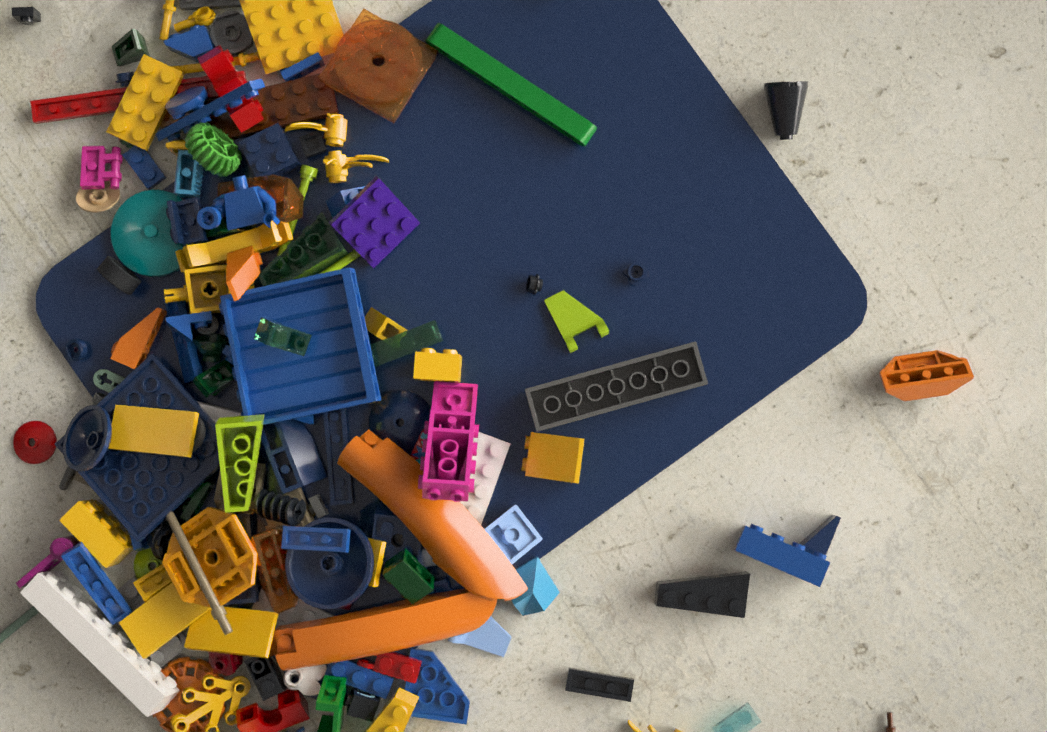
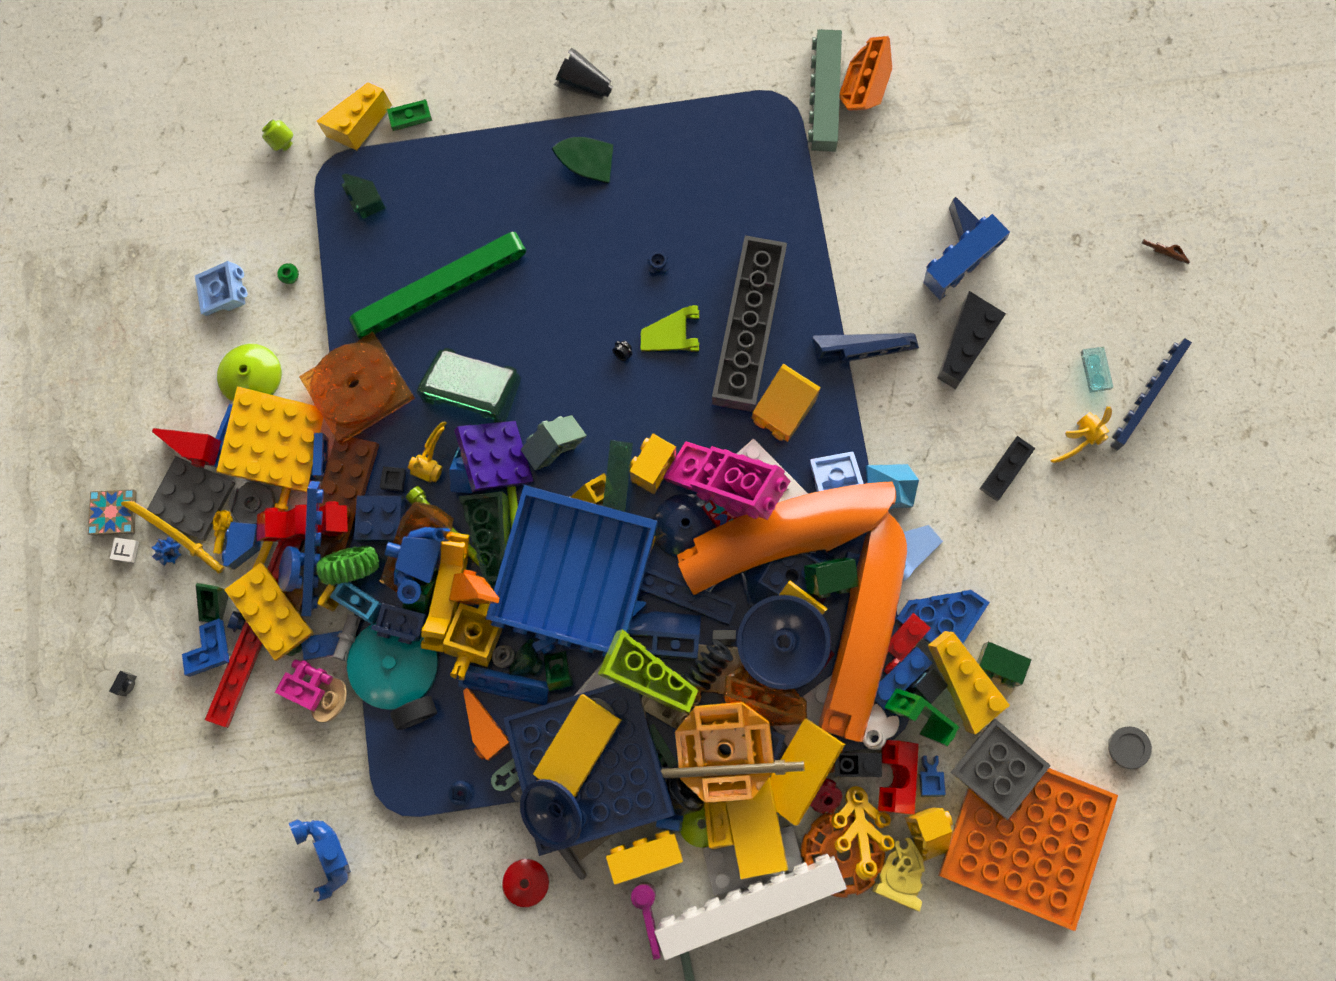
camera: 65 degrees left, 10 degrees down
(89, 74) = (213, 650): none -> blue plate
(96, 583) = (693, 880): blue plate -> none
(154, 182) = (346, 637): none -> light grey pin
(182, 323) = (492, 671): blue slope -> none
(282, 336) = (553, 576): clear green slope -> none
(316, 539) = (755, 641): blue plate -> none
(334, 129) = (388, 452): yellow plant -> none
(415, 266) = (552, 440): none -> sand green brick
(429, 165) = (469, 385): none -> clear green windscreen
(651, 499) = (863, 346): none -> dark blue wedge
(704, 152) = (586, 157): none -> dark green shield
(891, 343) = (826, 90): none -> sand green brick

